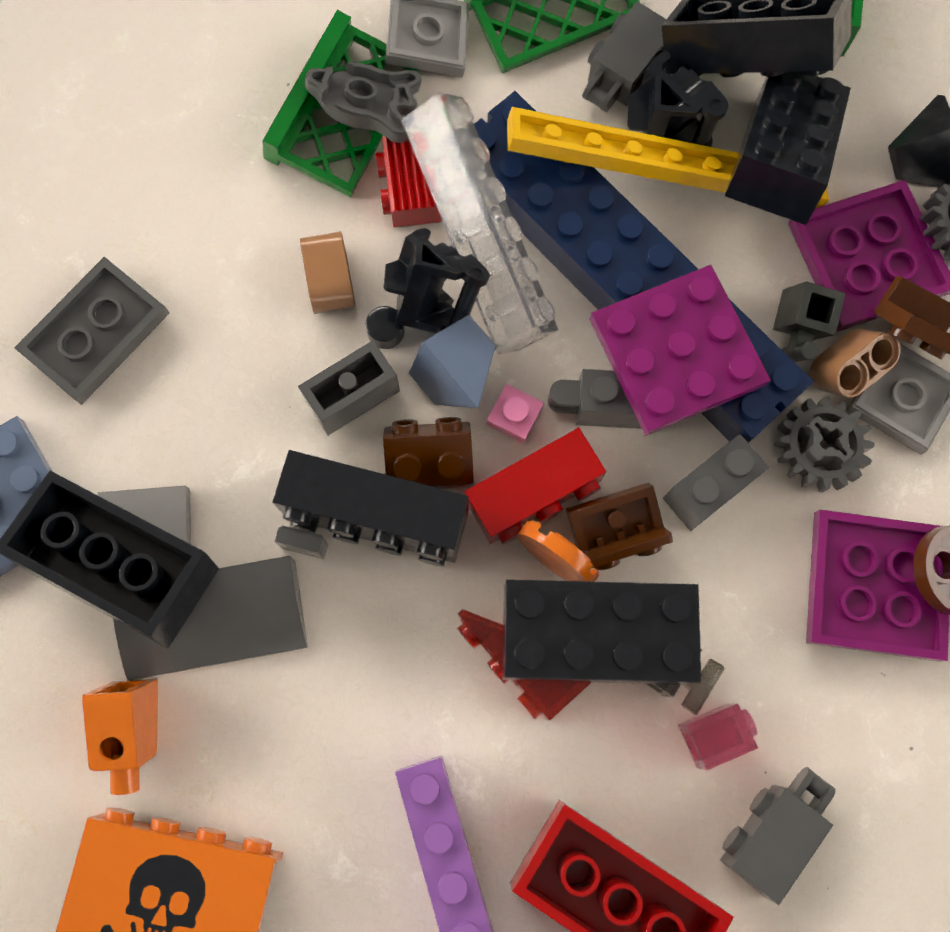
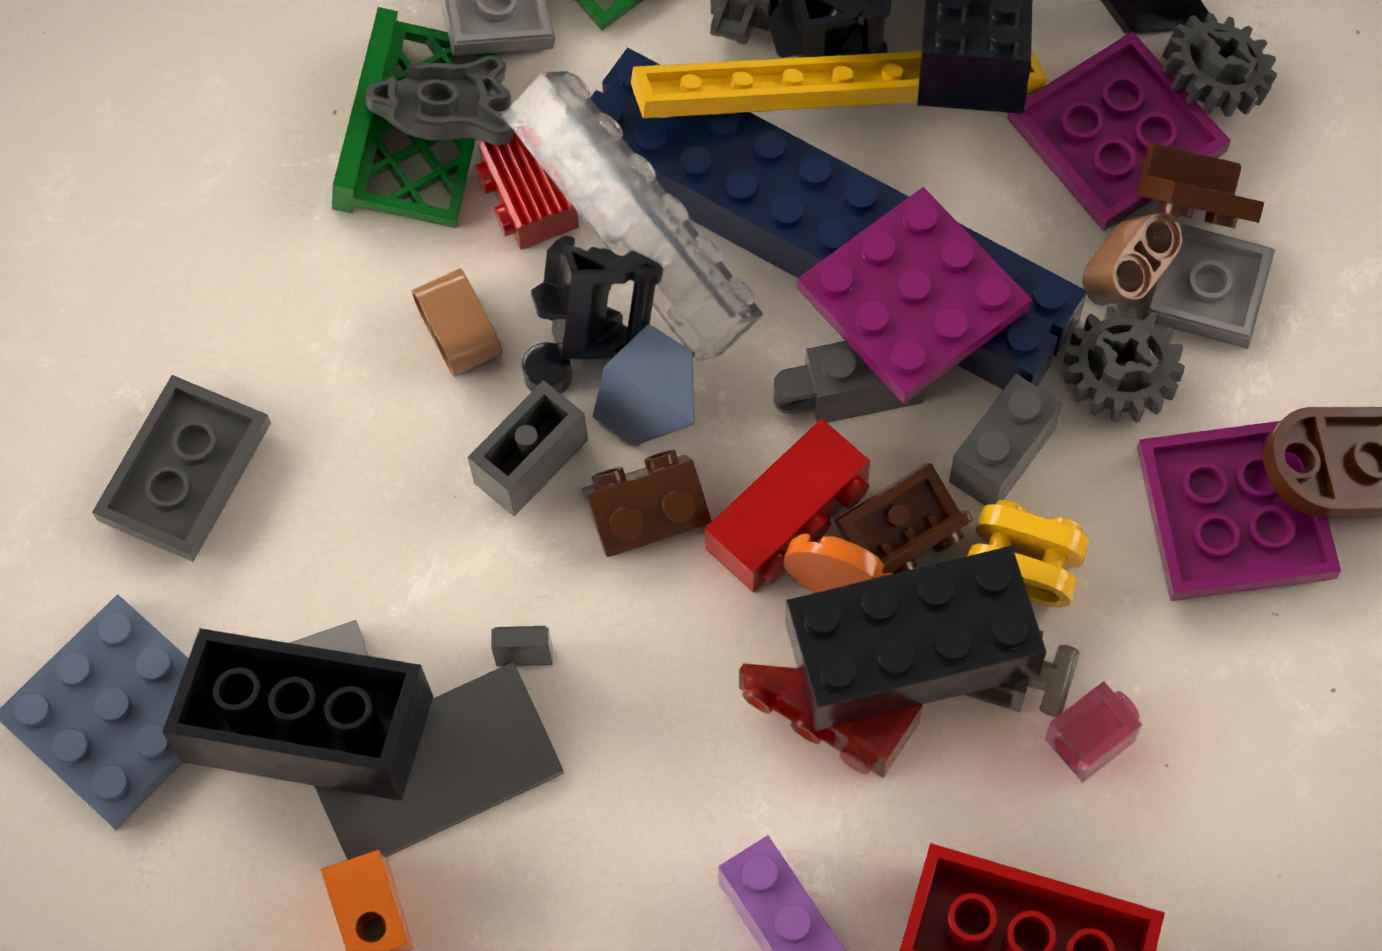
camera: 10 degrees left, 10 degrees down
(371, 507) = (601, 576): black brick -> none
(515, 413) = (738, 429): bright pink plate -> none
(732, 574) = (1053, 541): none -> yellow brick
(780, 835) = (1199, 825): dark grey brick -> none
(807, 315) = (1059, 218): pearl dark grey brick -> none

